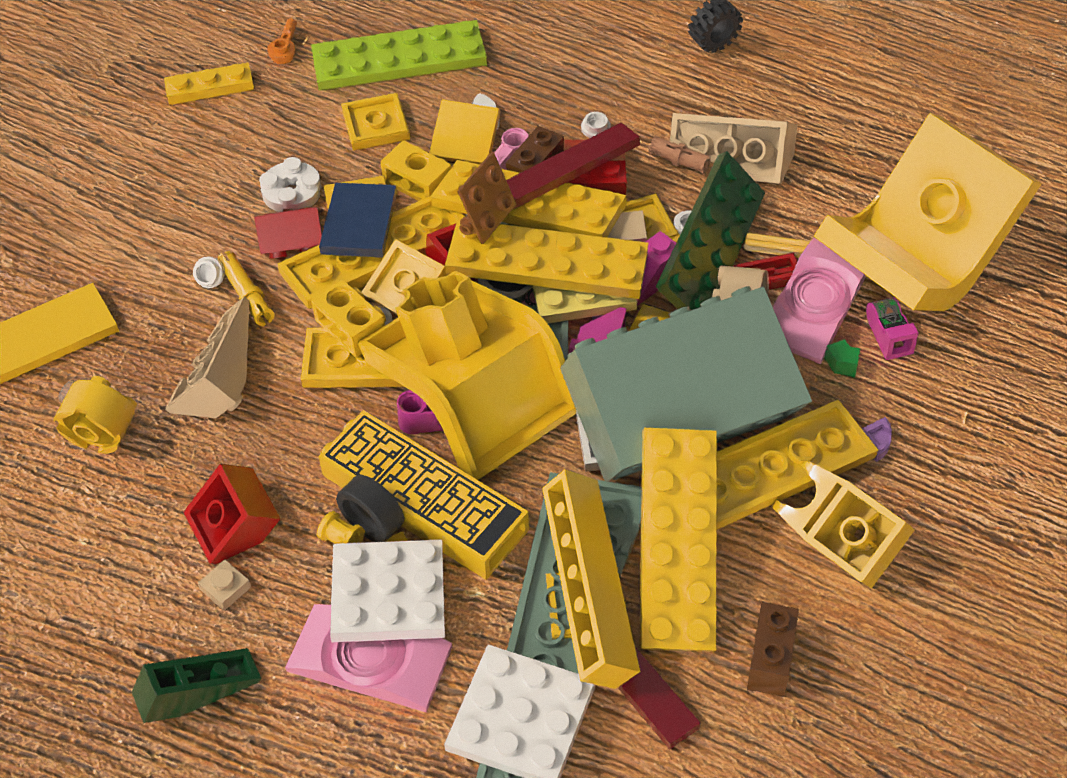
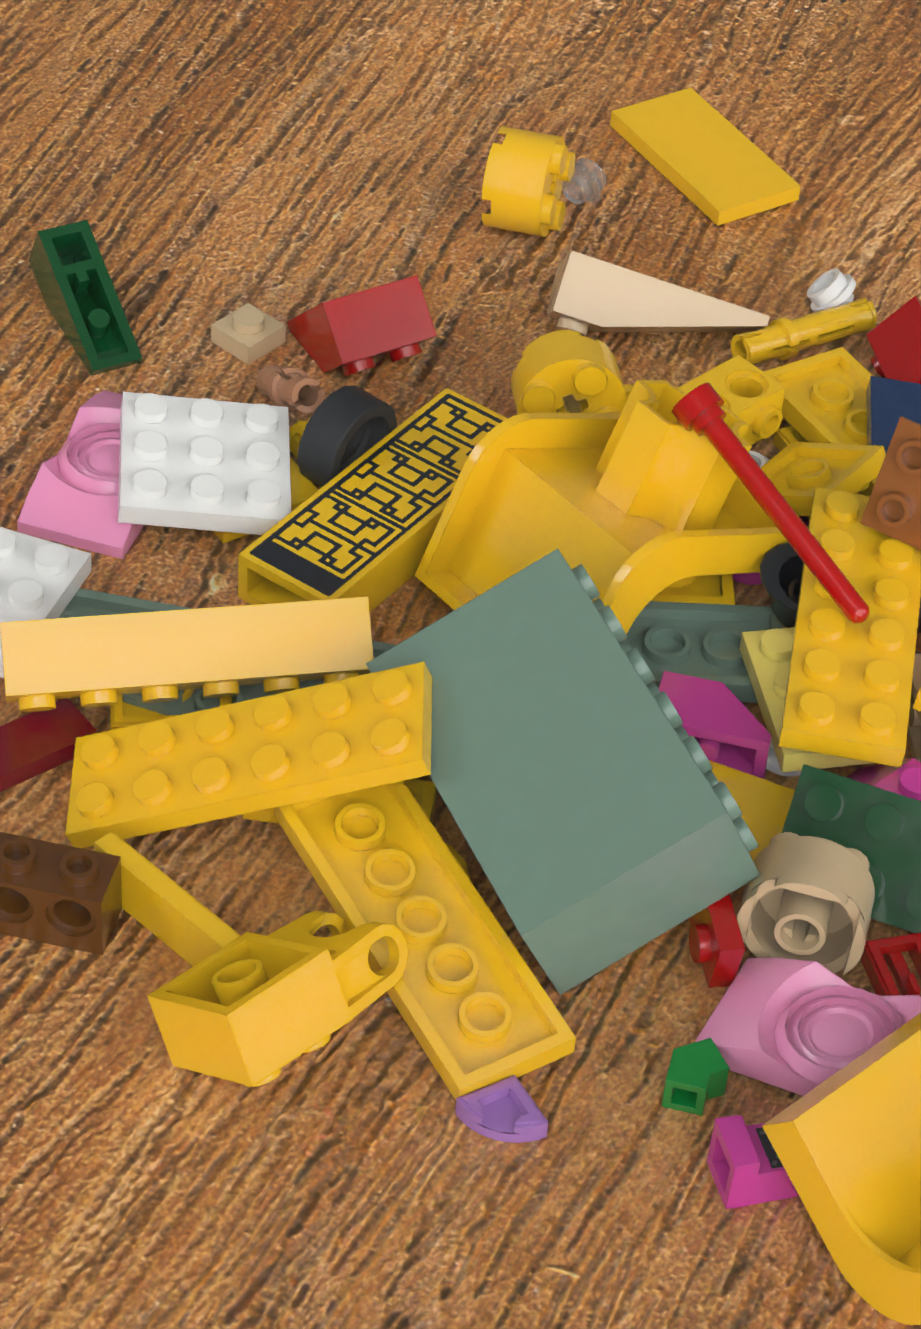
camera: 85 degrees right, 10 degrees down
(308, 546) = (290, 388): none -> nougat pin
(332, 390) = (567, 376): none -> yellow brick
(456, 277) = (703, 414): none -> red piece
(773, 589) = (166, 906): none -> yellow tile

